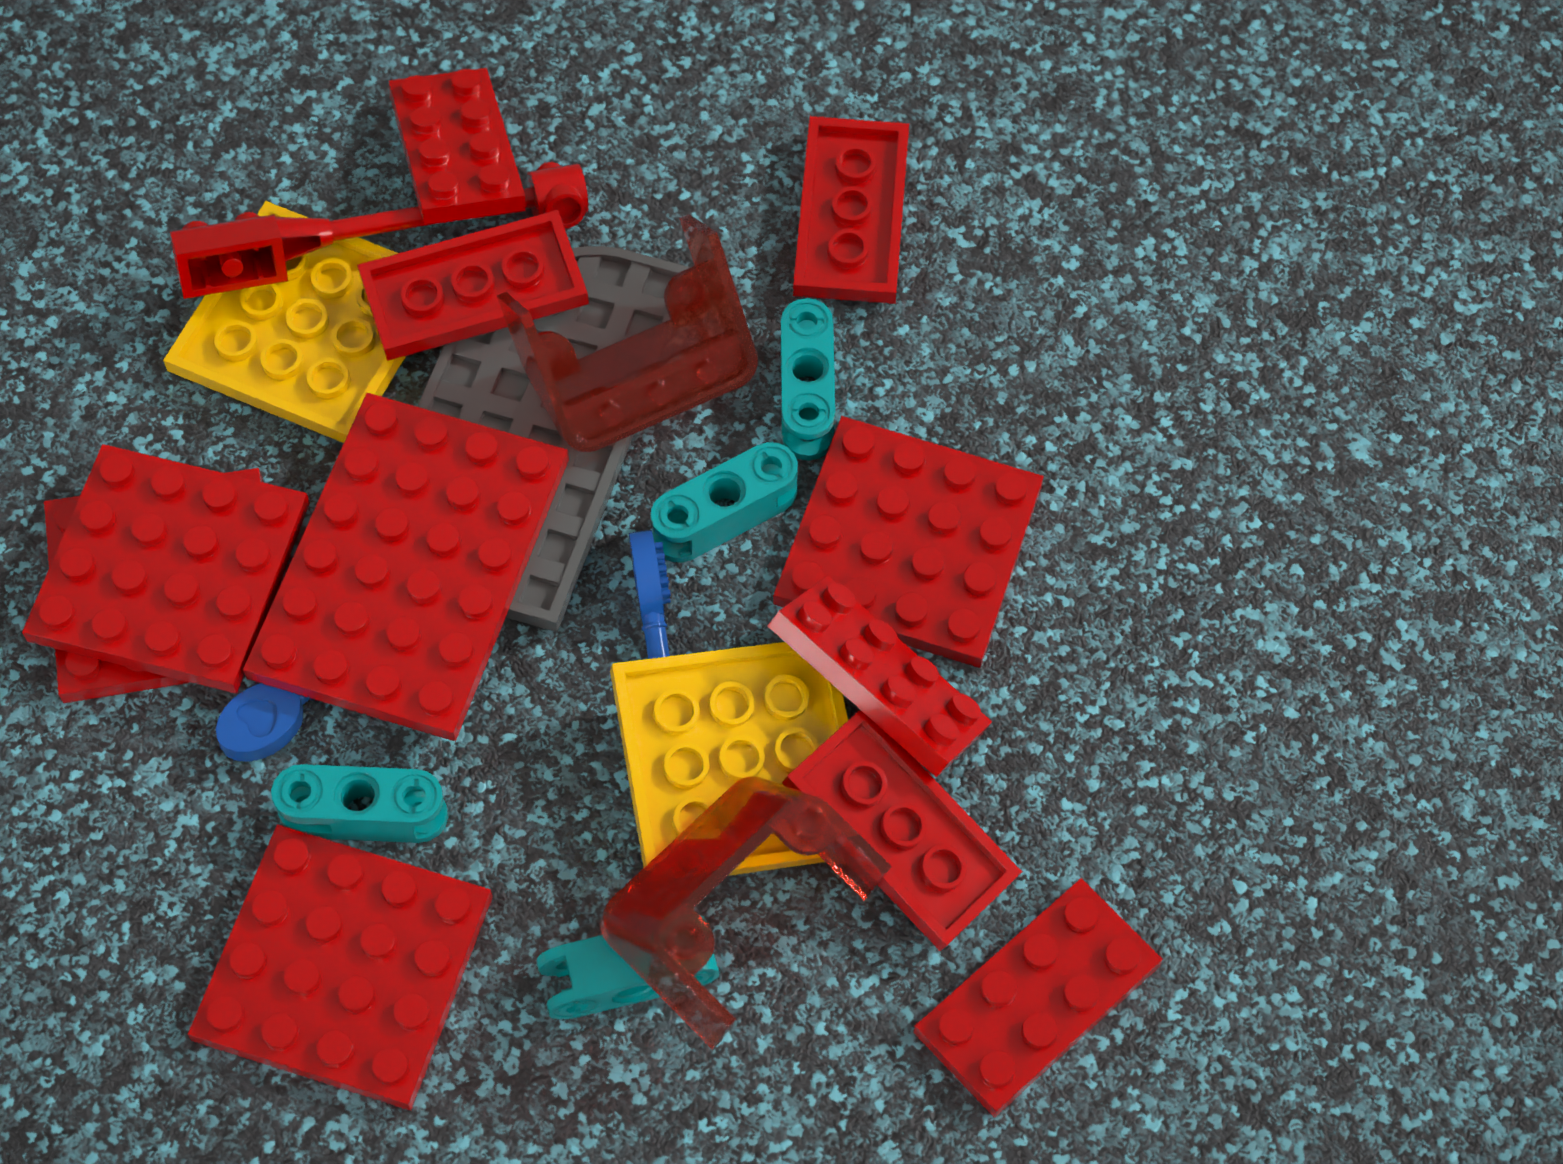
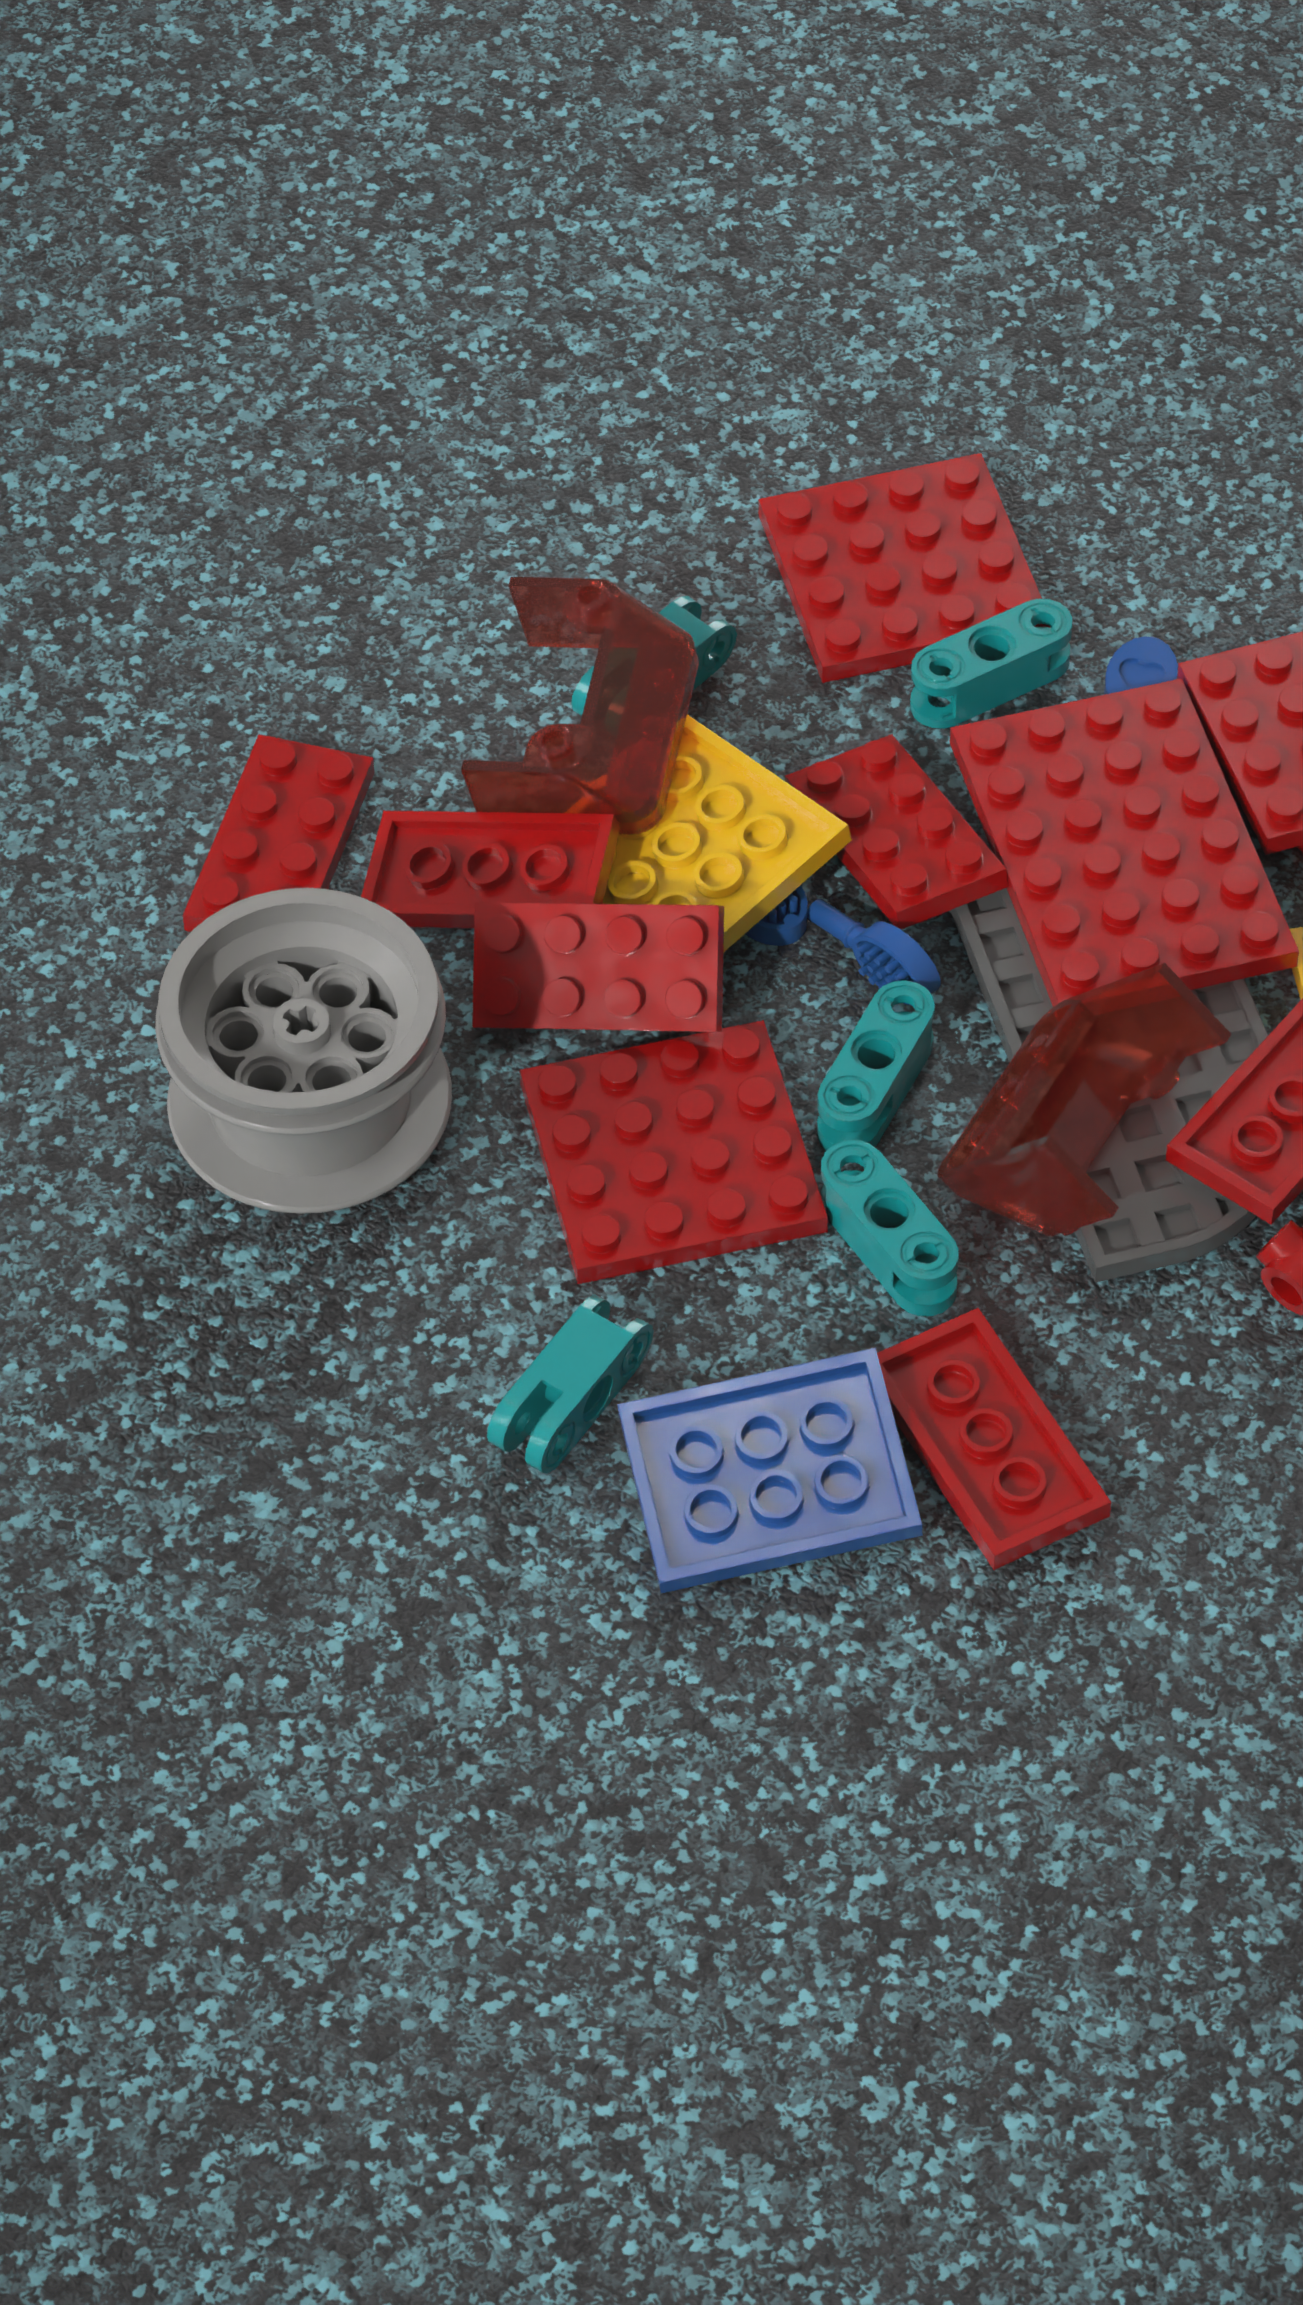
camera: 150 degrees right, 10 degrees down
(557, 690) = (906, 836): none -> red plate
(1011, 258) = (769, 1470): none -> plate
(1105, 390) = (569, 1384): none -> teal piece
(1183, 625) = (304, 1050): none -> light grey wheel

